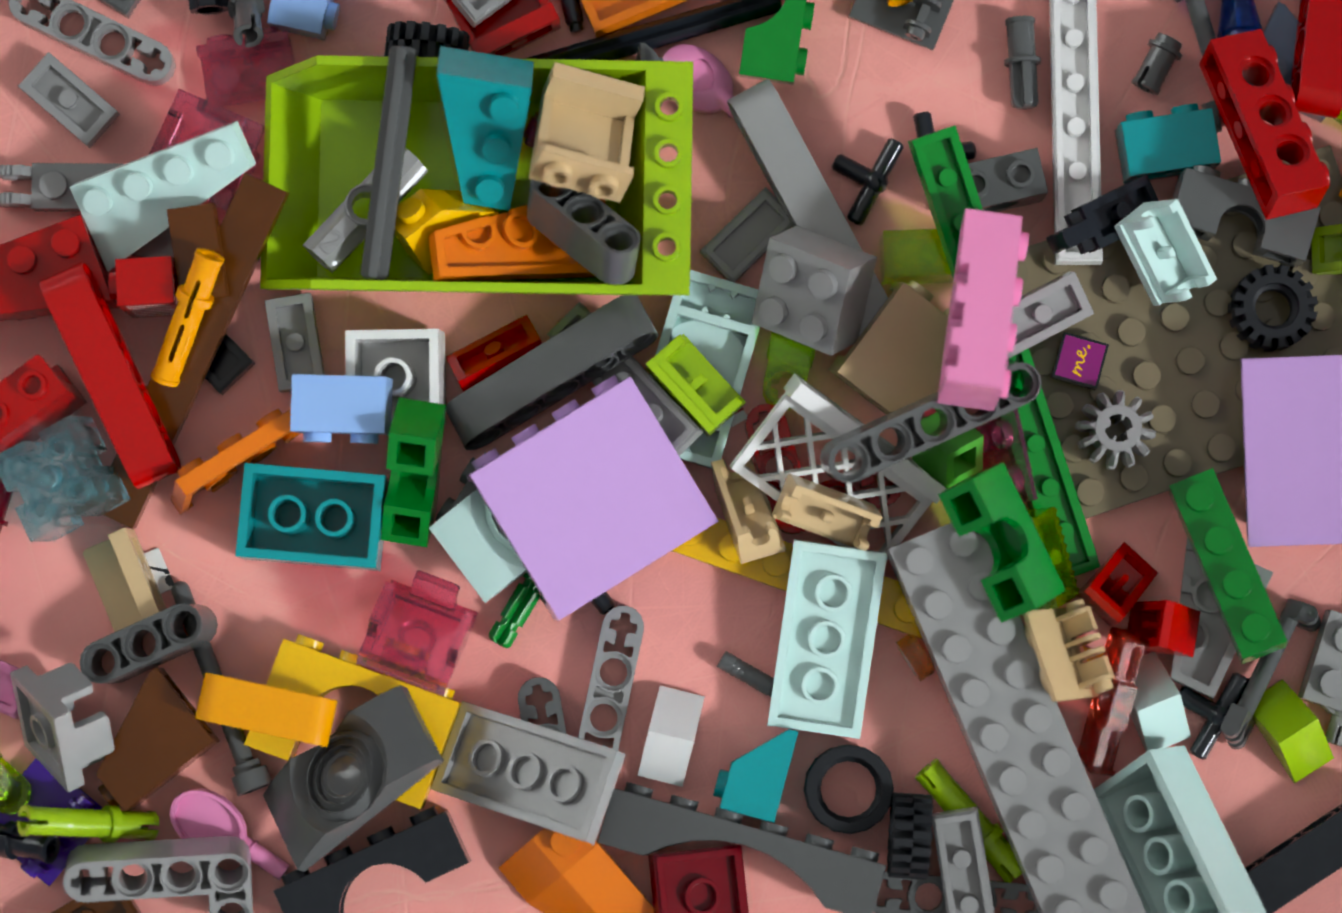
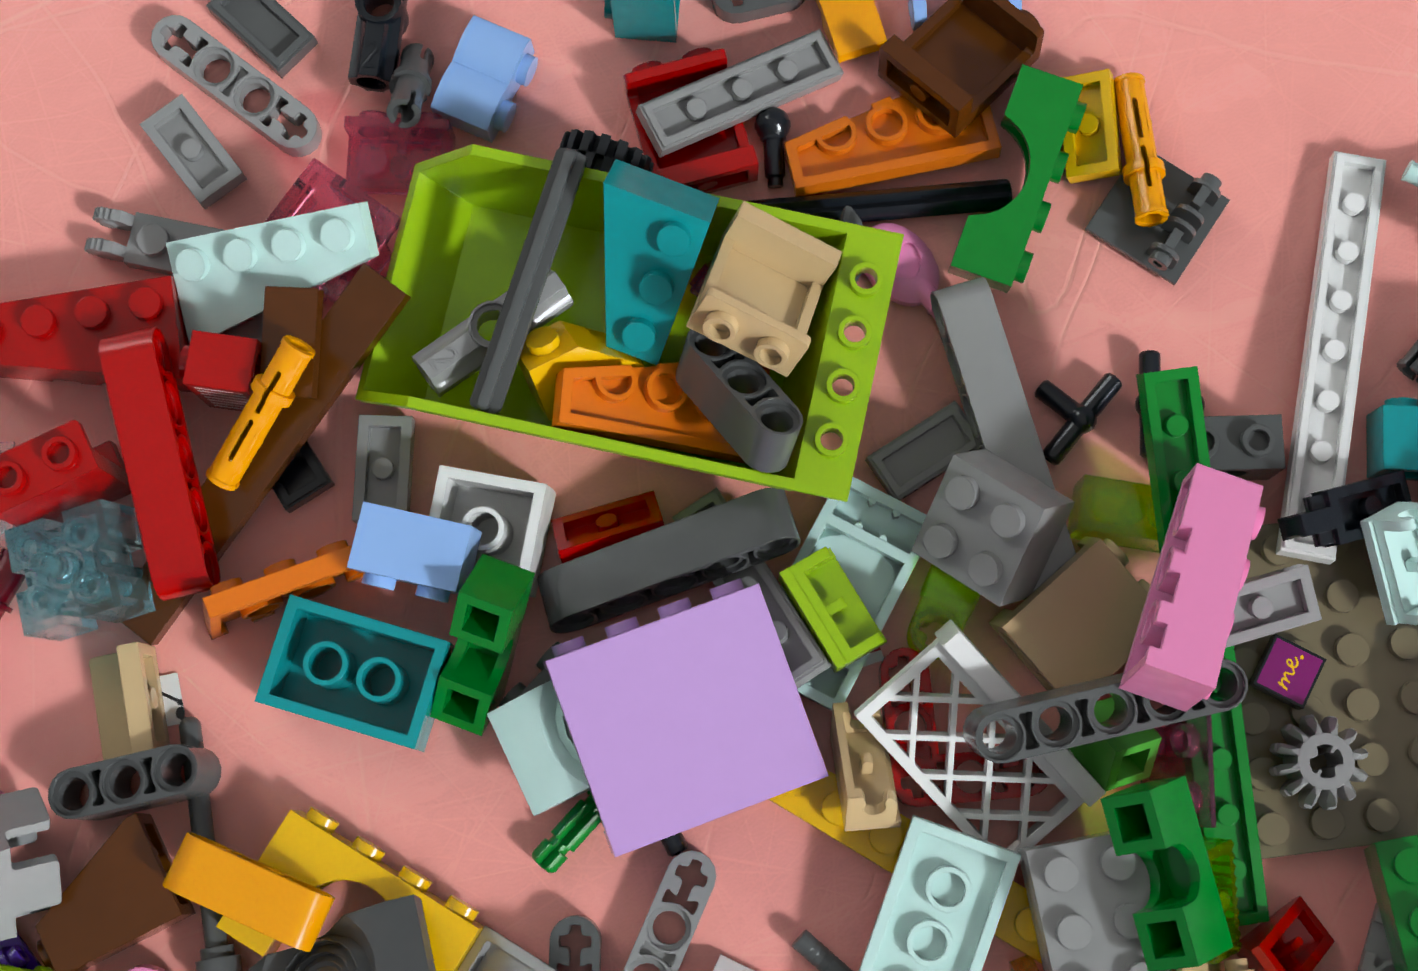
camera: 15 degrees right, 5 degrees down
(418, 632) = (448, 834): clear pink panel -> none
(826, 512) = (958, 791): tan hinge -> none
(1022, 61) = (1275, 316): dark grey axle -> none

